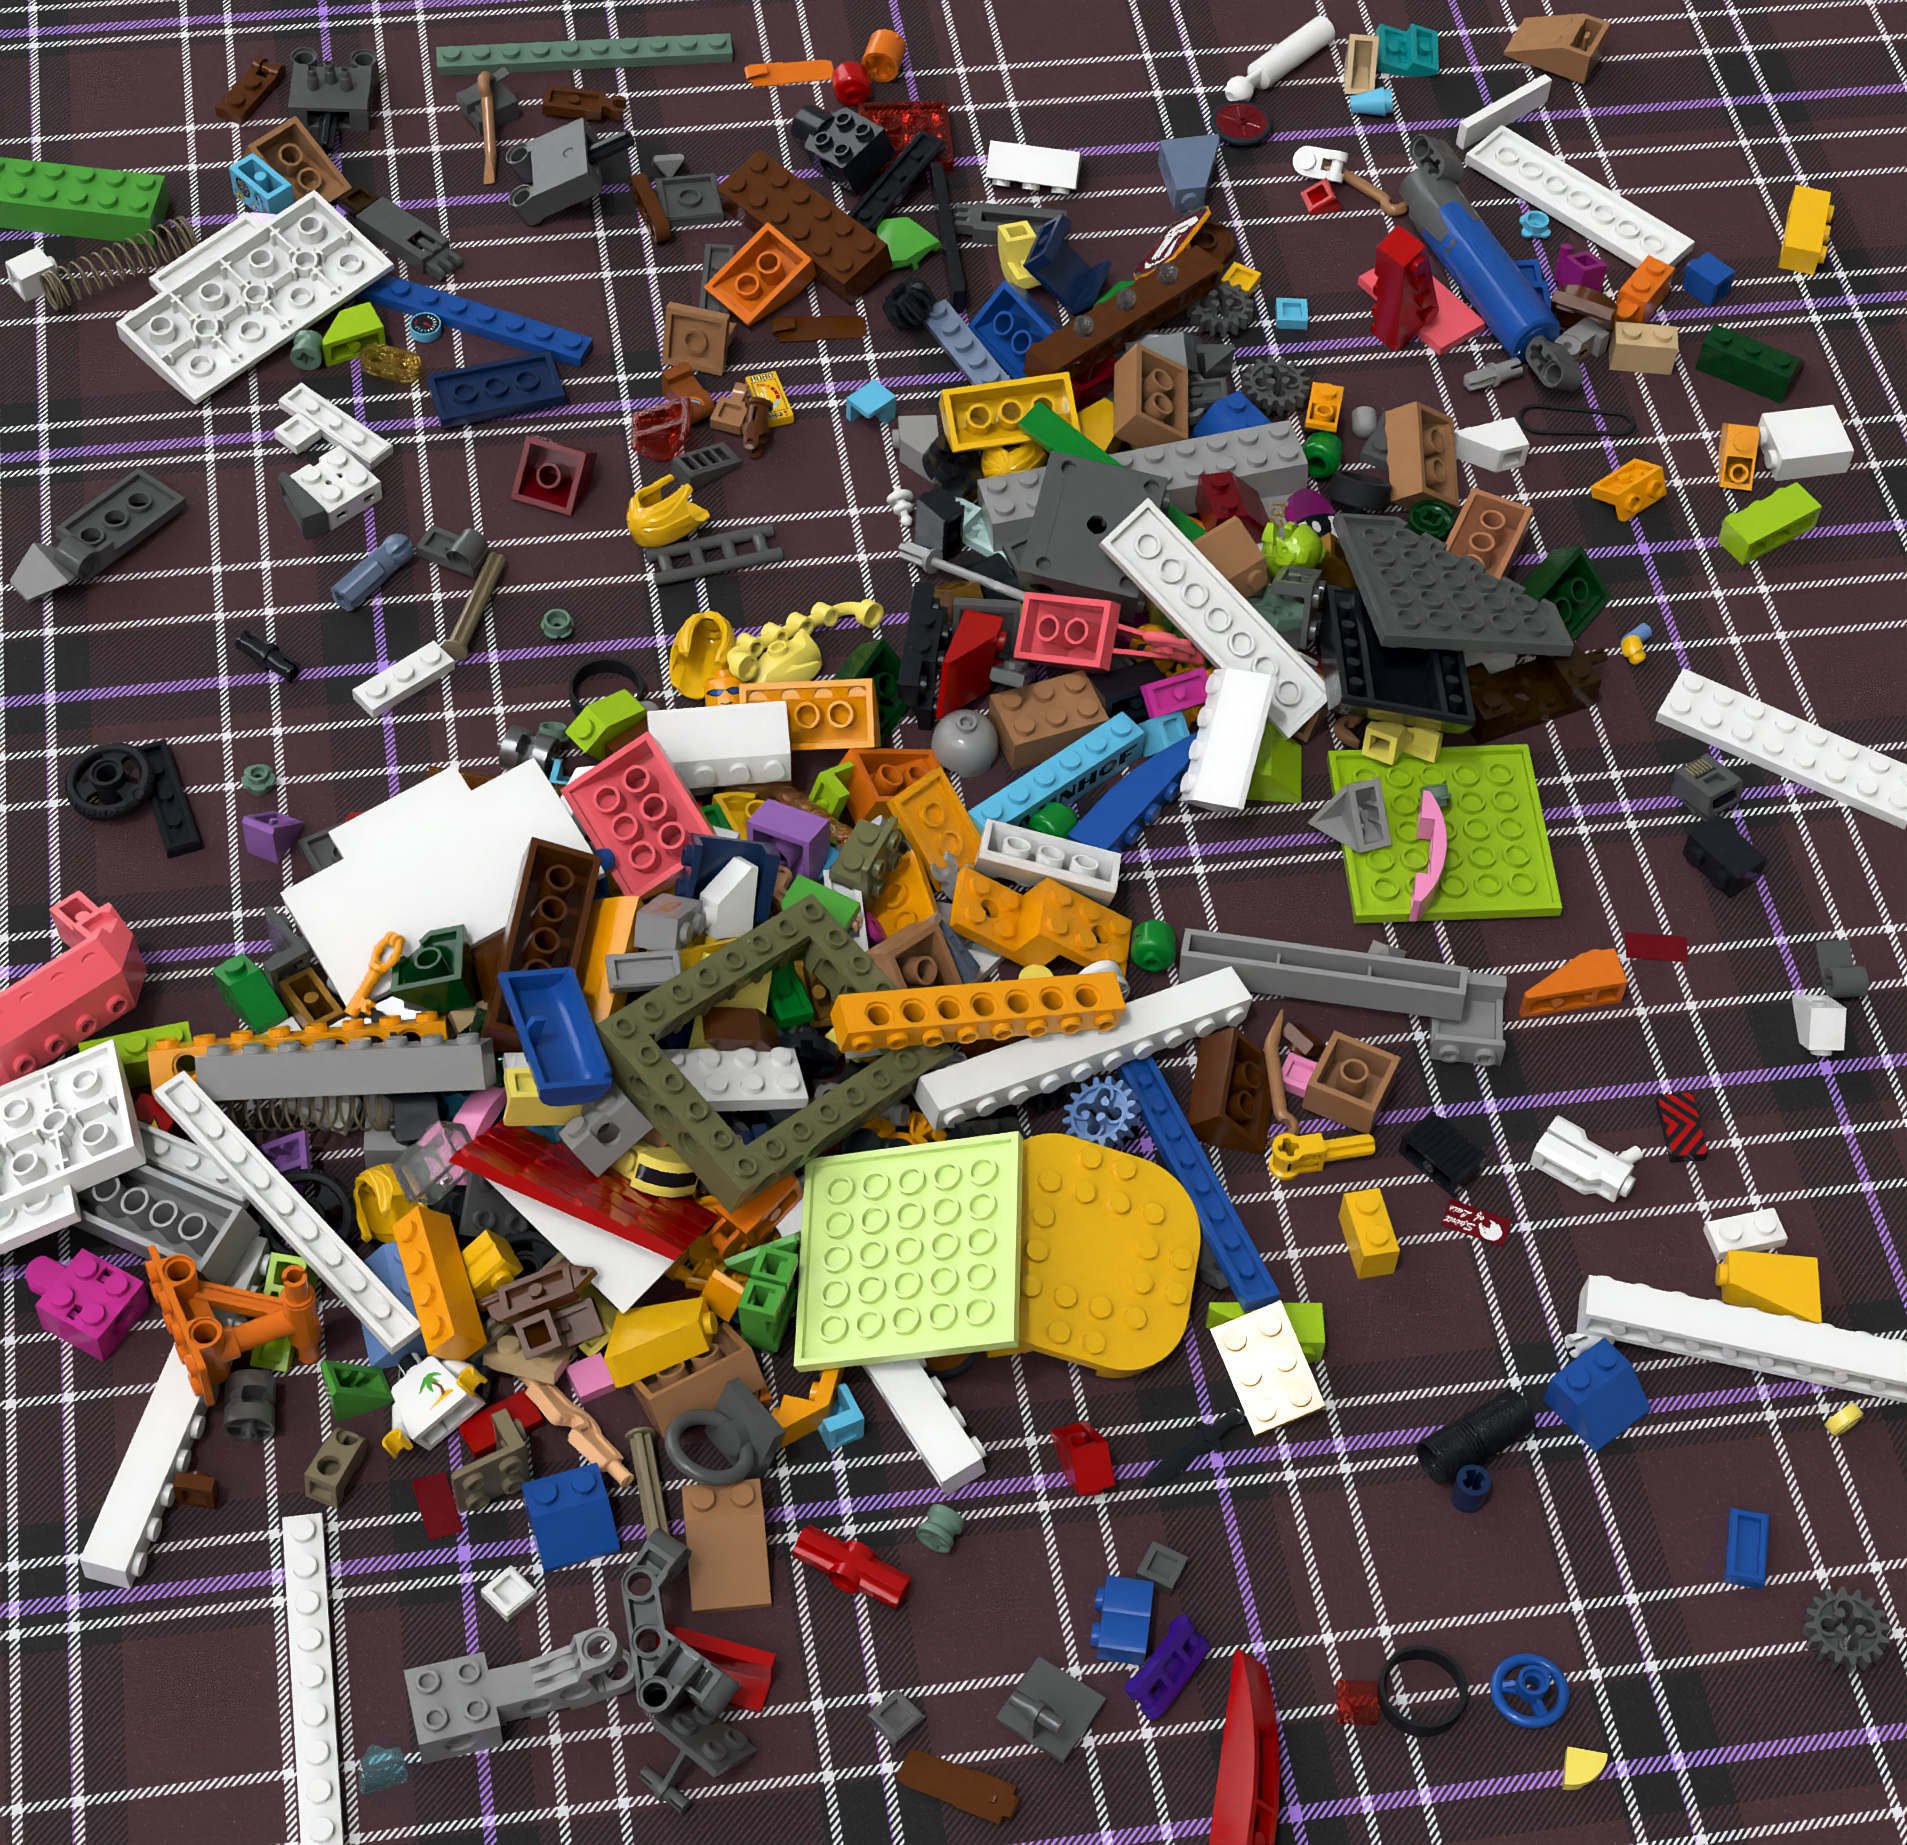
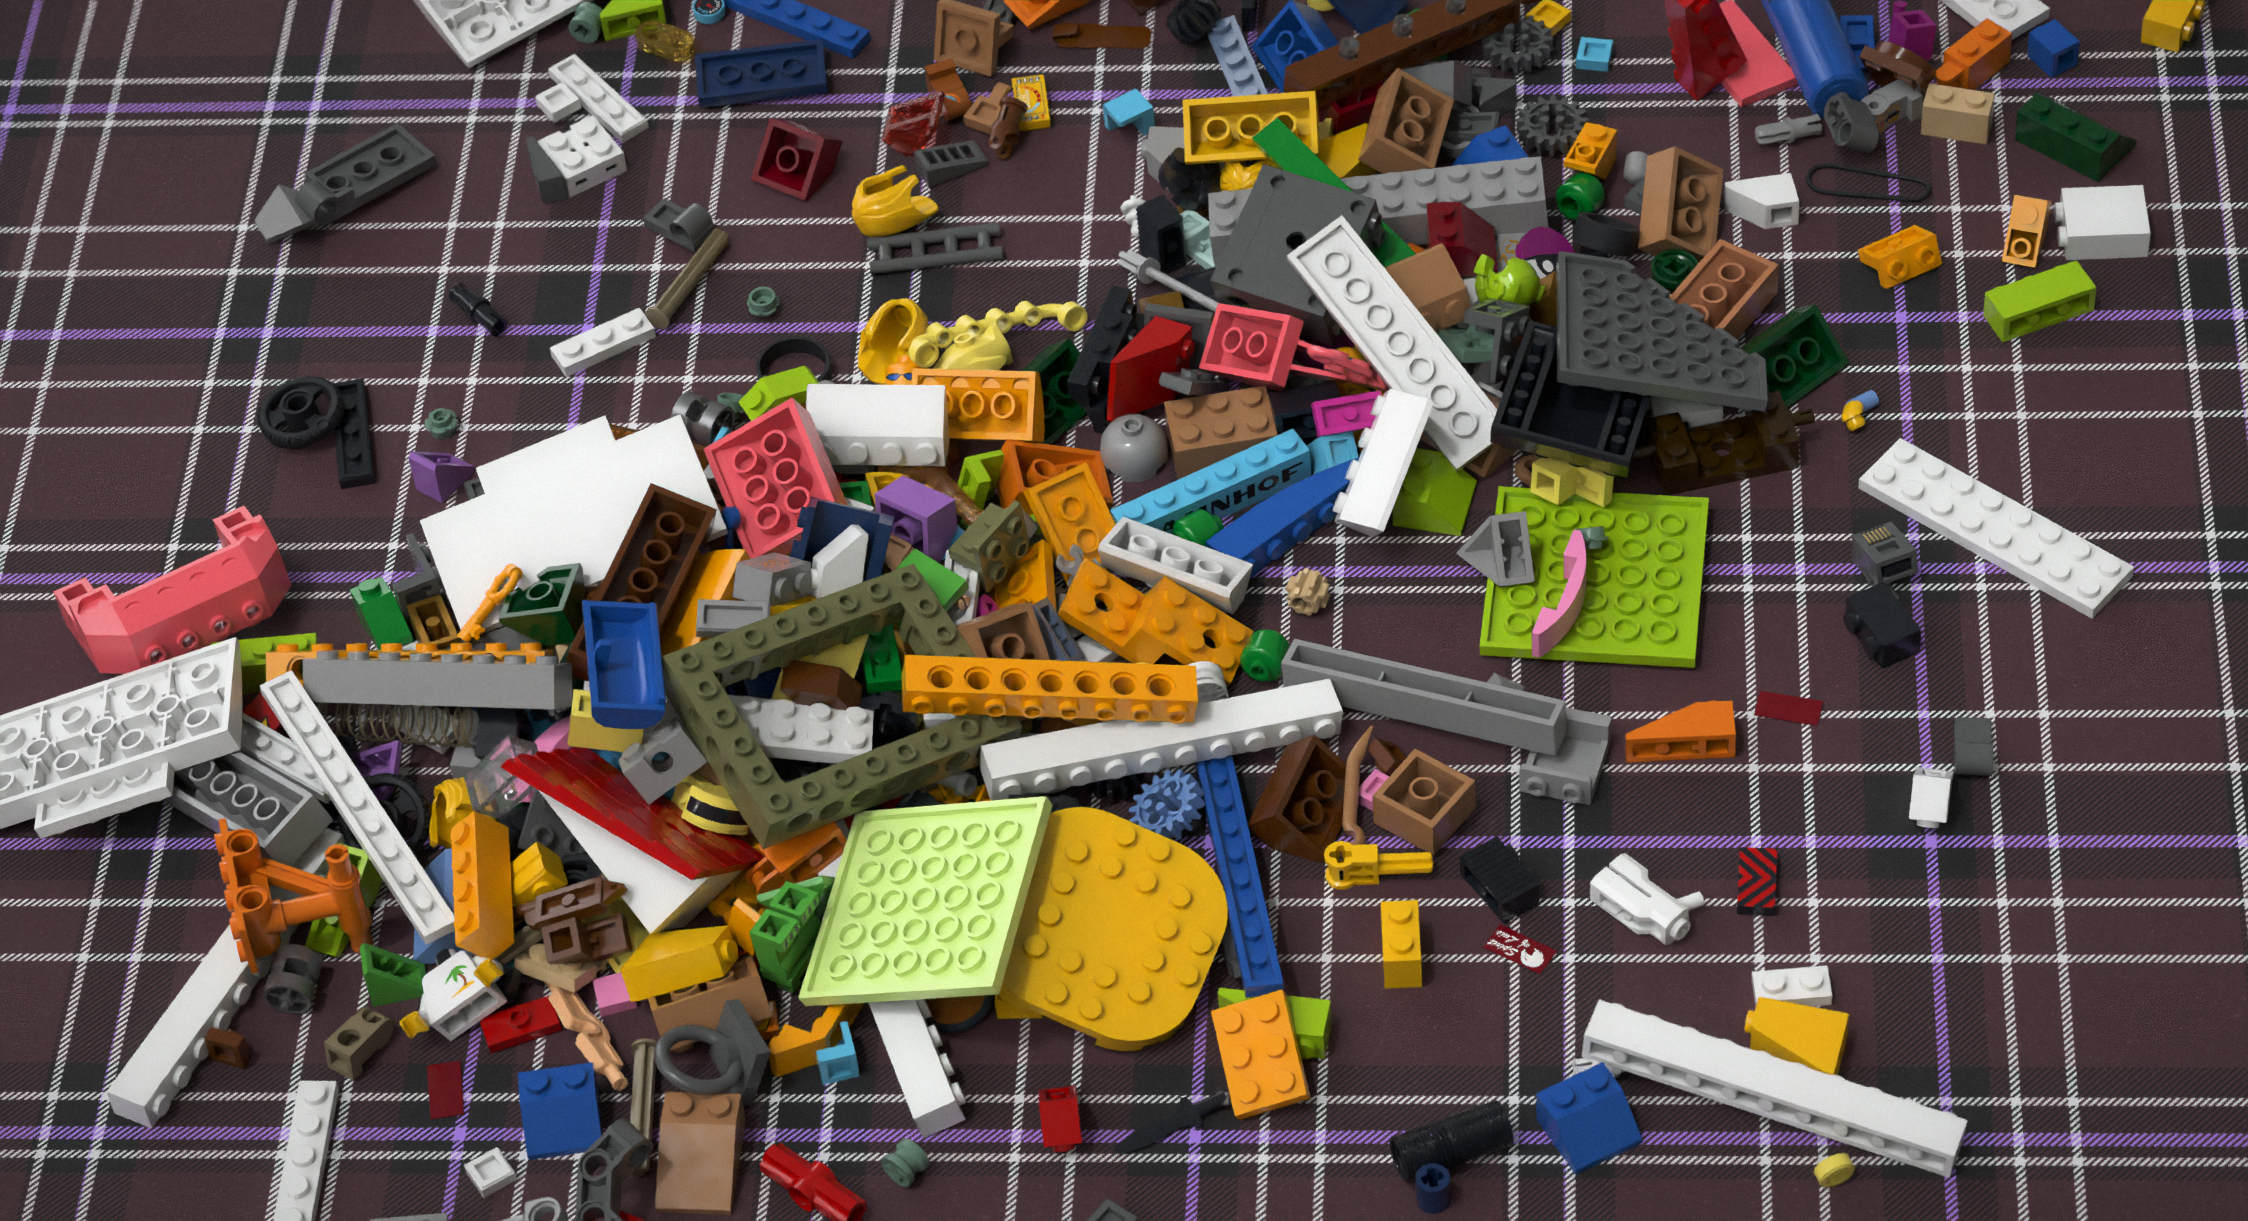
camera: 20 degrees right, 5 degrees down
(87, 1301) = (168, 873): dark pink brick -> none
(372, 571) = (597, 237): sand blue piece -> none
(497, 1472) = (496, 1061): dark tan bracket -> none
(1176, 876) = (1307, 592): none -> tan gear

